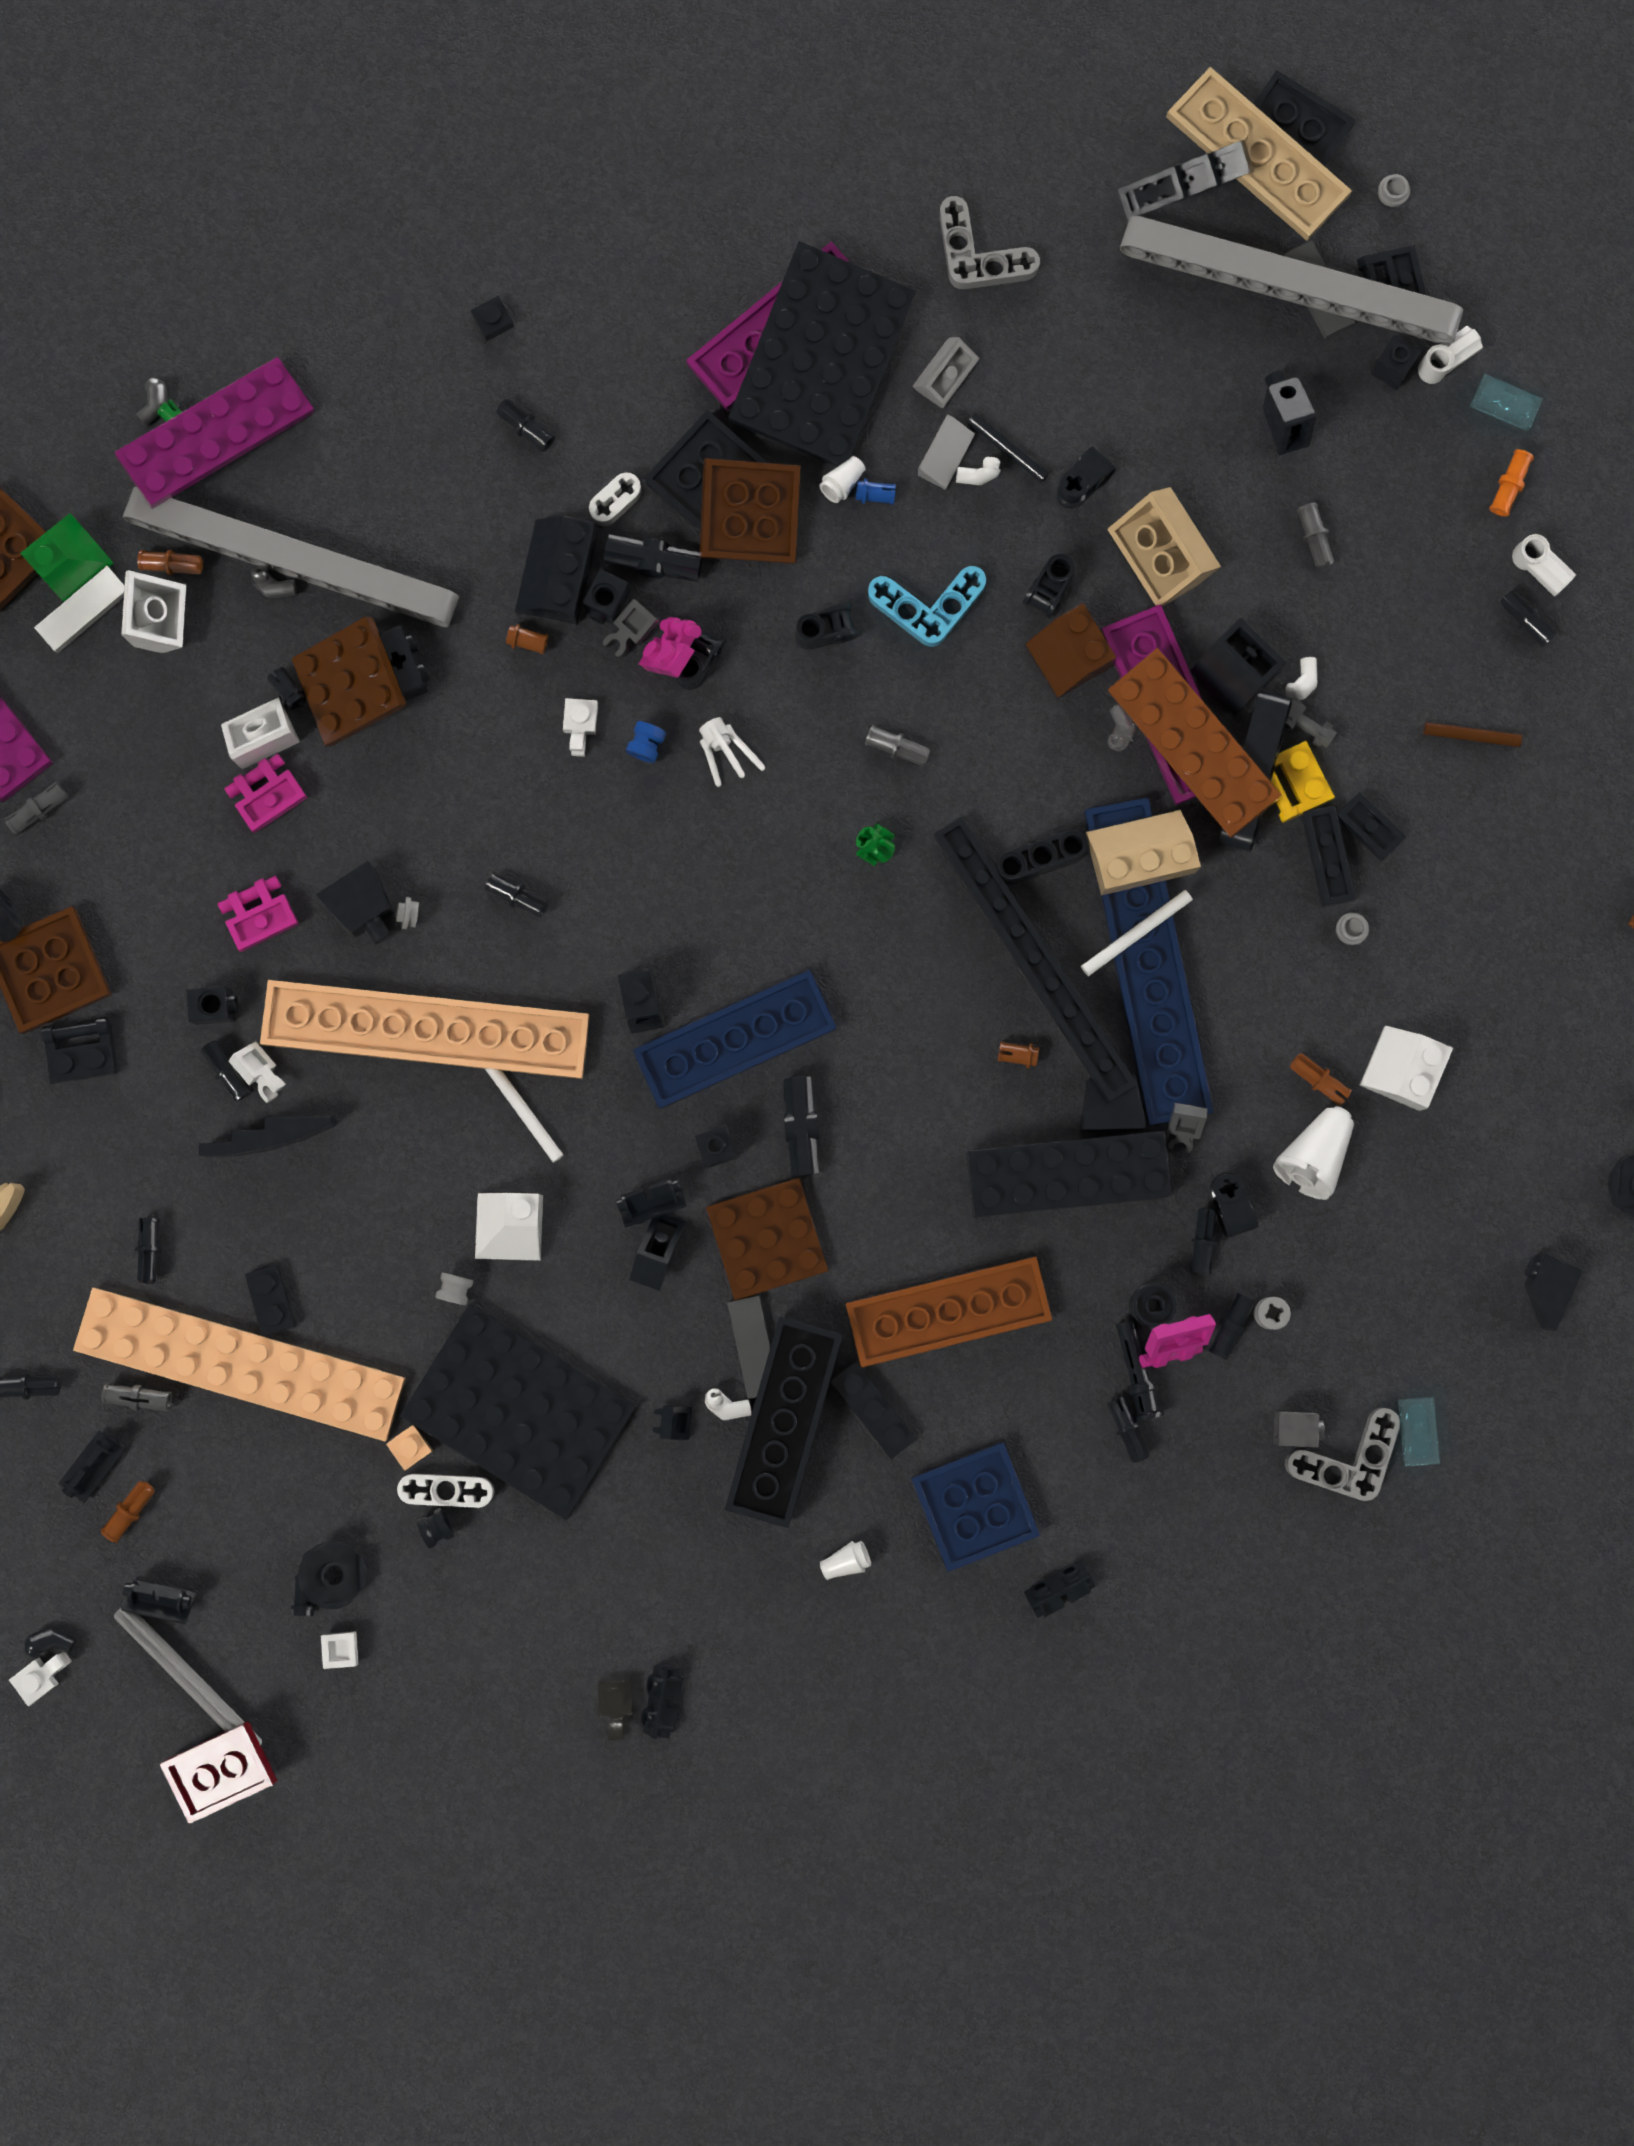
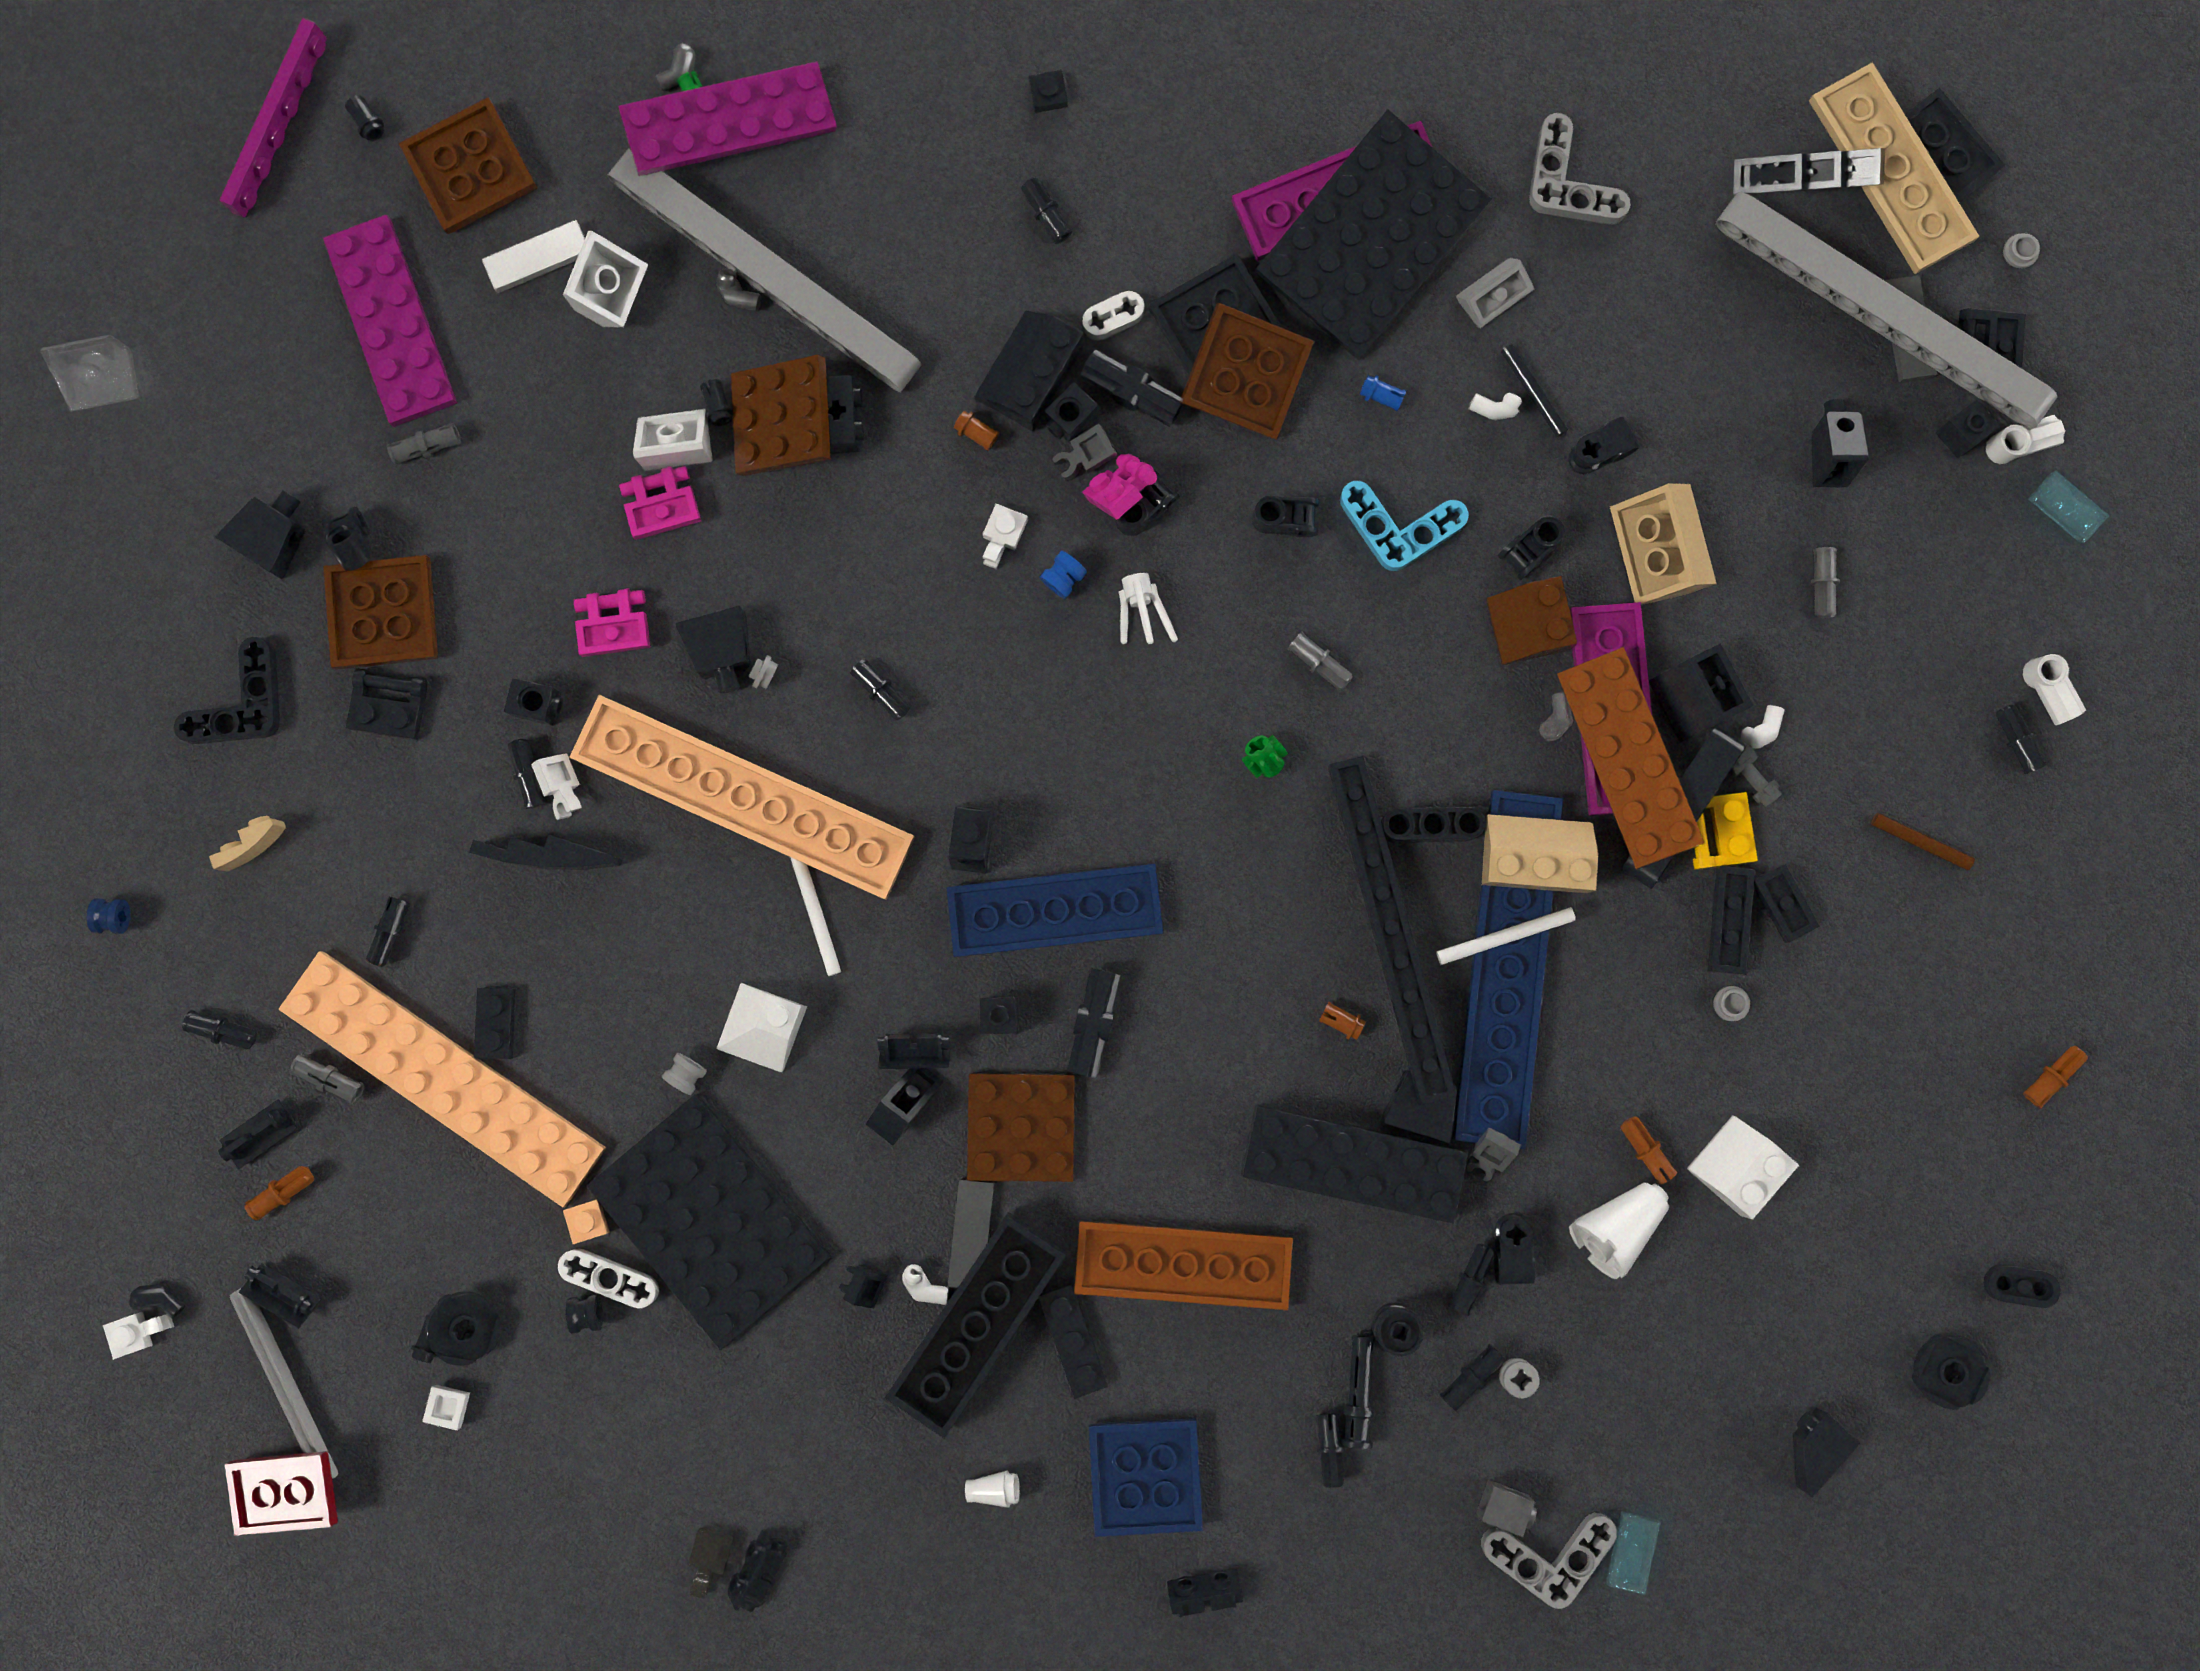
camera: 20 degrees right, 0 degrees up
(66, 557) = (536, 198): green slope -> none
(170, 562) = (640, 236): dark orange axle -> none
(842, 479) = (1352, 369): white cone -> none
(945, 452) = (1468, 375): light grey slope -> none
(1177, 1341) = (1411, 1376): dark pink plate -> none
(1511, 483) = (2048, 592): orange pin -> none

